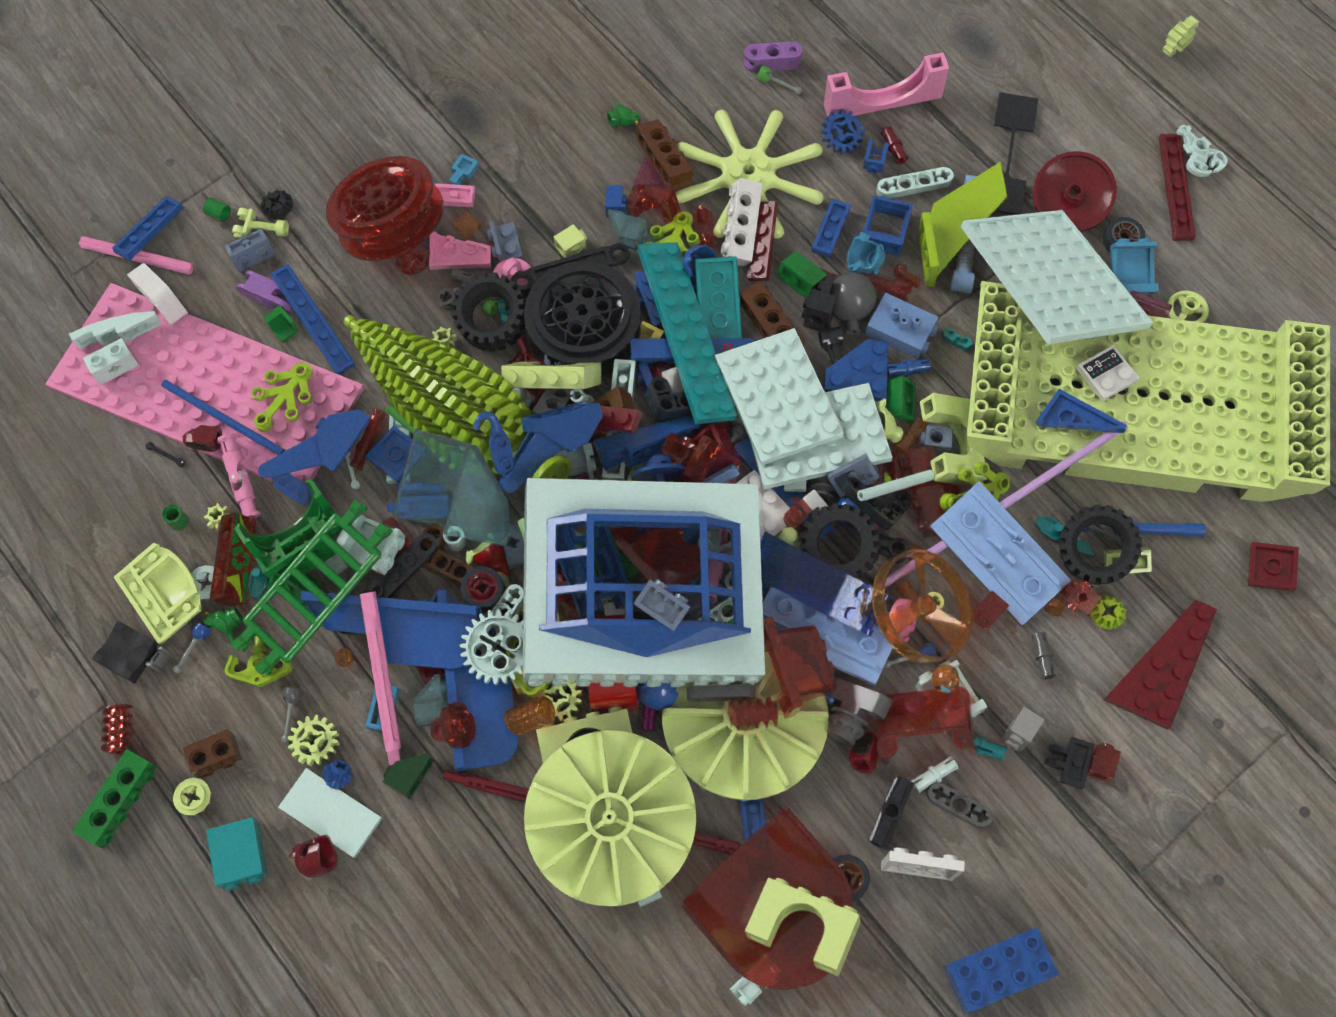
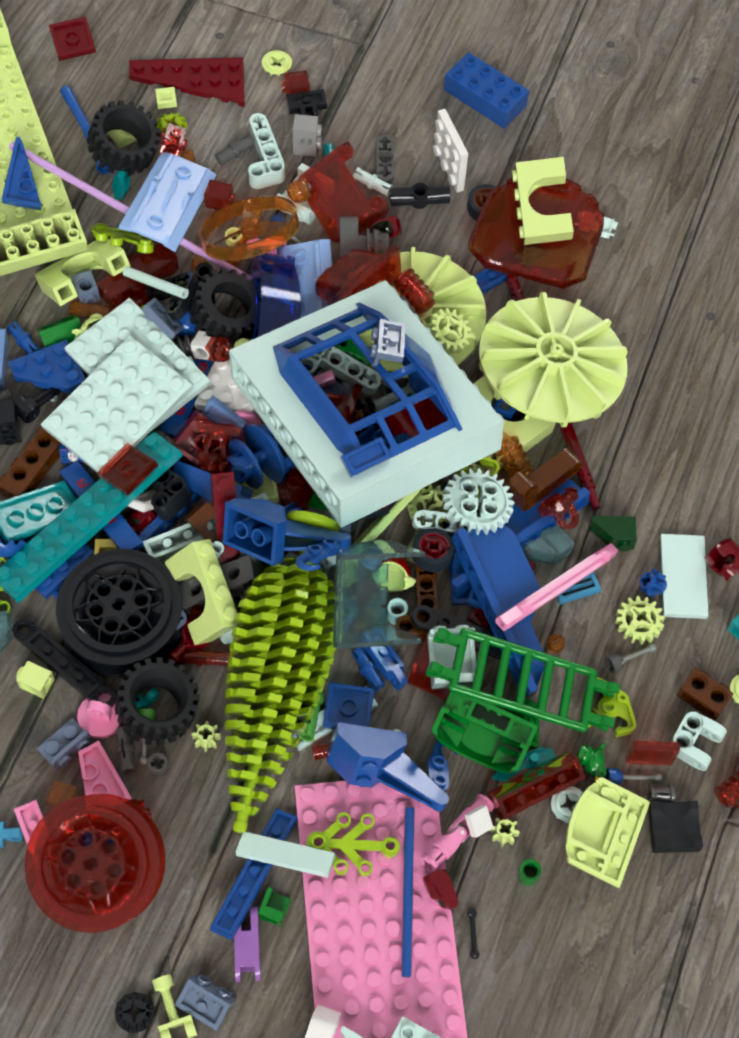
camera: 125 degrees left, 5 degrees down
(174, 705) = (705, 727): none -> light aqua piece
(190, 667) = (652, 752): none -> clear red tile
(232, 493) = (479, 821): none -> white tile
(306, 342) = (285, 854): none -> light aqua tile
(493, 734) = (533, 488): none -> reddish brown beam
(555, 520) = (365, 457): none -> blue tile
(686, 711) = (449, 330): none -> yellowish green gear
(704, 371) = (127, 469): none -> clear red tile
(1029, 683) = (271, 168): none -> light aqua beam
(1146, 621) = (166, 97): none -> yellowish green plate
(1152, 752) = (278, 57): none -> yellowish green gear

